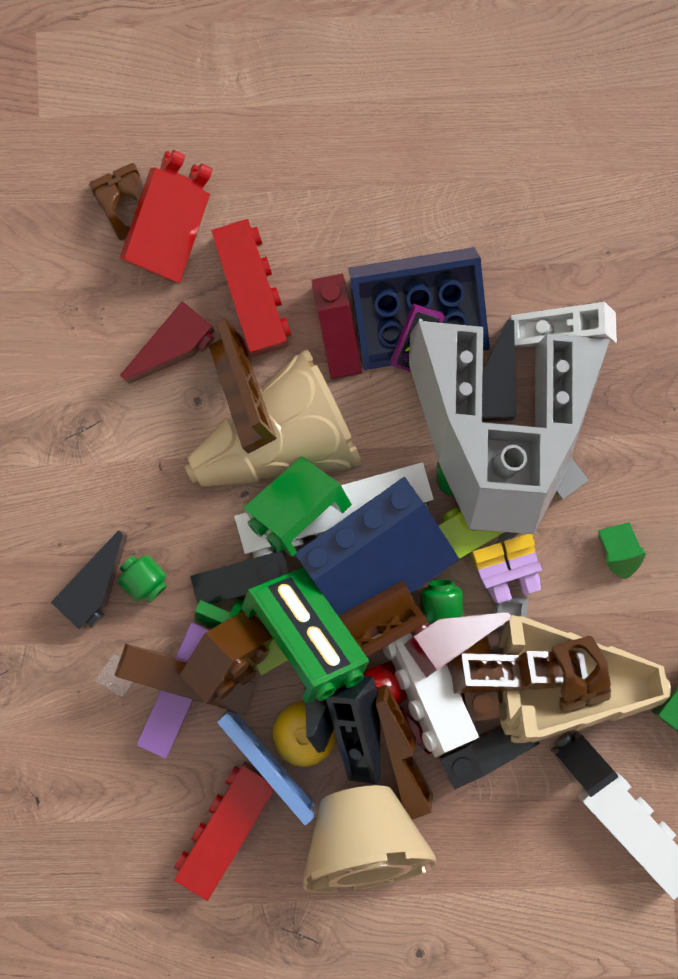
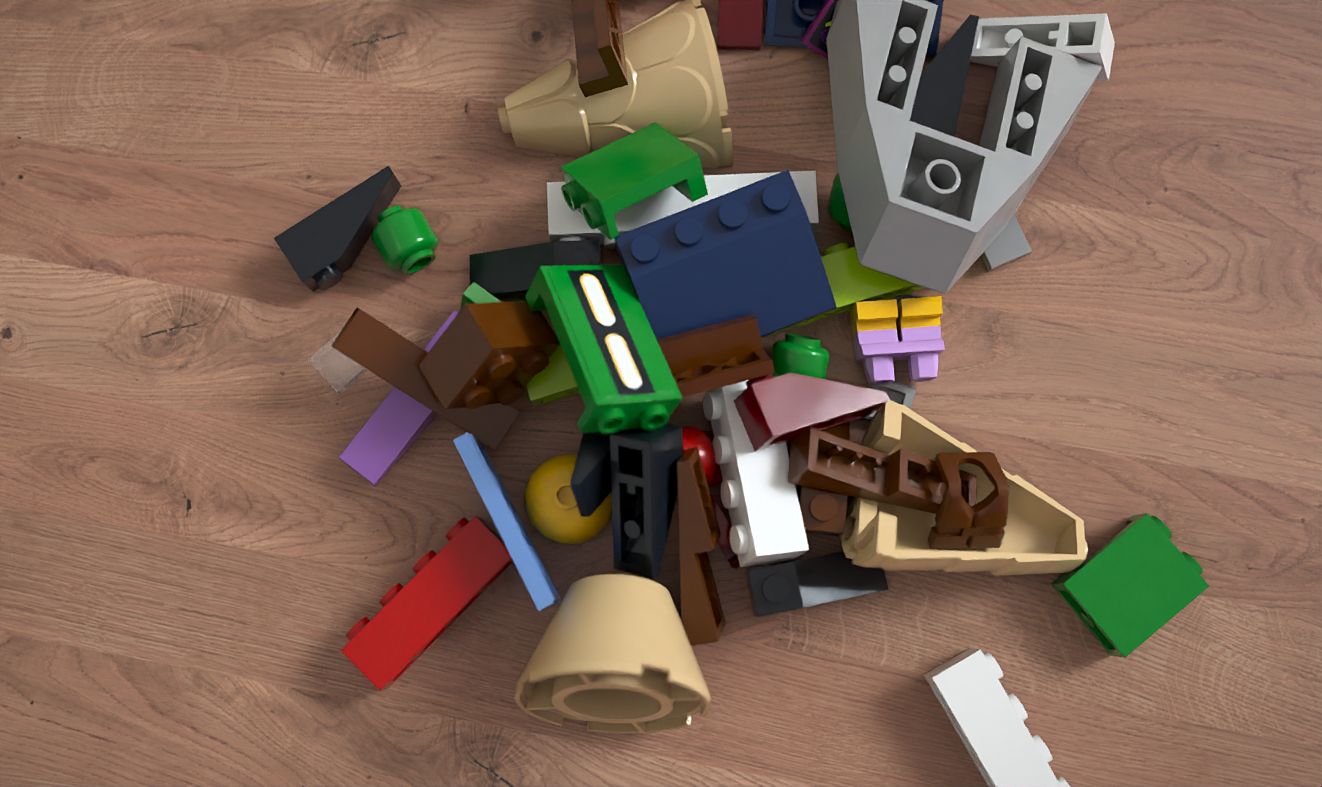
camera: 15 degrees right, 5 degrees down
(583, 763) = (945, 621): black slope -> none
(621, 549) = (1058, 353): green tile -> none

